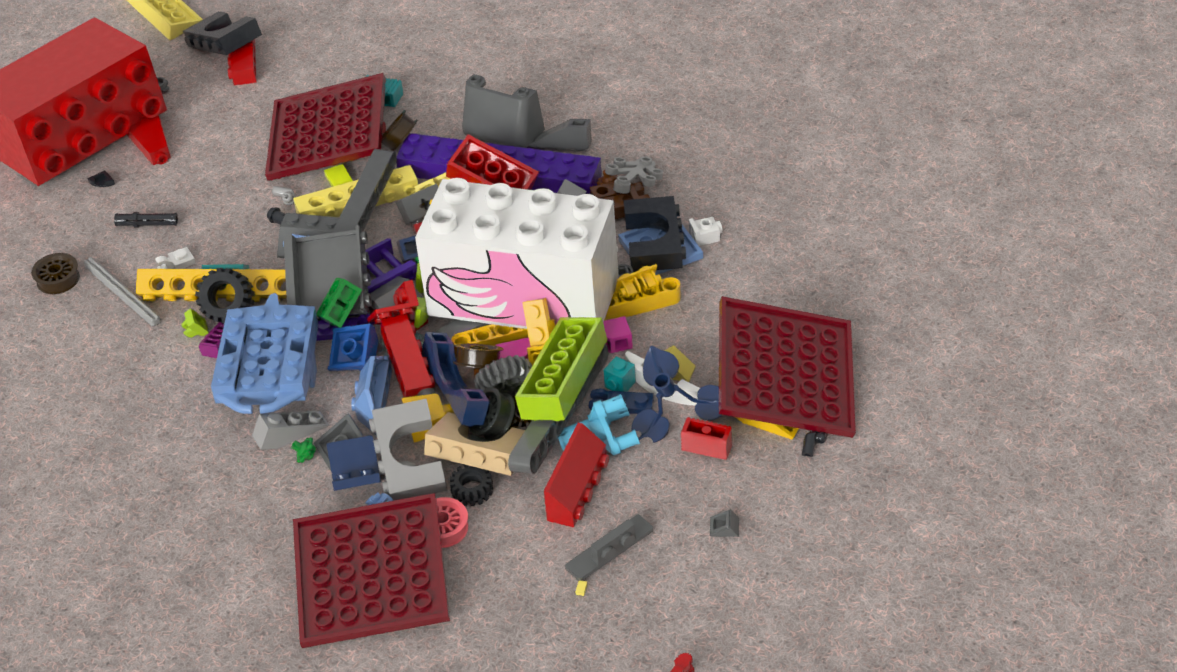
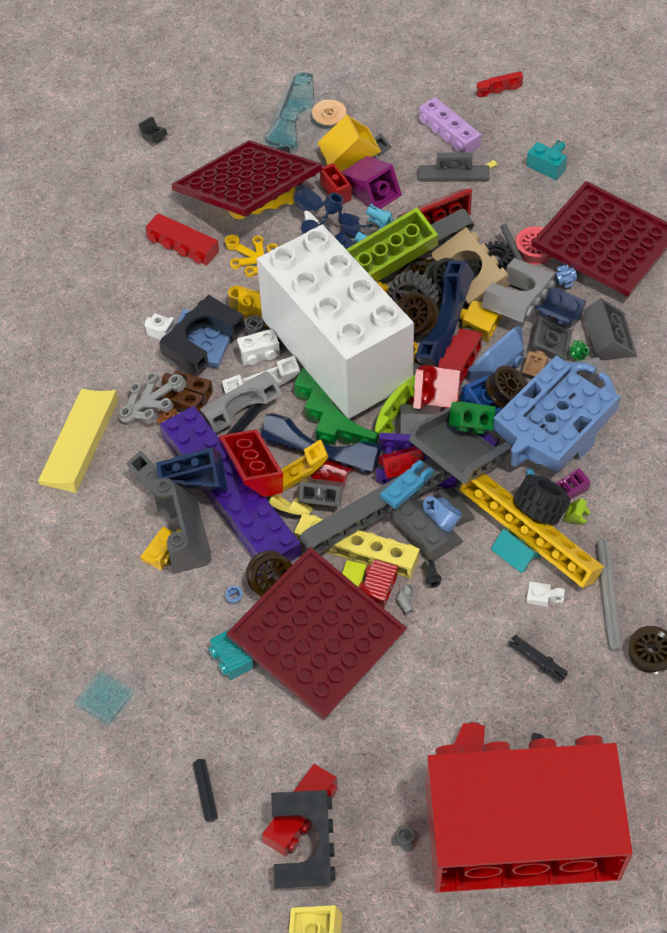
camera: 140 degrees left, 10 degrees up
(288, 485) = (609, 331): none -> dark grey slope
(312, 179) = (379, 581): none -> red brick
(319, 32) = (205, 790): none -> black axle
(335, 411) = (534, 363): none -> medium nougat bracket
(338, 365) = (504, 385): none -> dark brown wheel
(341, 214) = (406, 485): none -> dark azure hinge
(380, 250) = (400, 461): none -> red bracket
(421, 119) = (231, 591): none -> medium blue hinge
(443, 30) = (104, 698): none -> clear light blue plate
(466, 500) = (510, 241): none -> dark grey piece
(518, 622) = (548, 160): none -> teal brick
(521, 131) = (195, 470): none -> dark blue wedge
(660, 131) = (79, 439): none -> light yellow arch
(668, 590) = (449, 126): none -> lavender brick
(677, 467) = (373, 182): none -> magenta slope
(700, 339) = (232, 243): none -> yellow plant
(740, 484) = (348, 143): none -> yellow slope
(804, 297) = (182, 239): none -> red brick
(814, 508) = (328, 112): none -> light nougat dish
(825, 453) = (295, 99): none -> clear light blue windscreen
(956, 376) = (151, 131): none -> pearl dark grey bracket

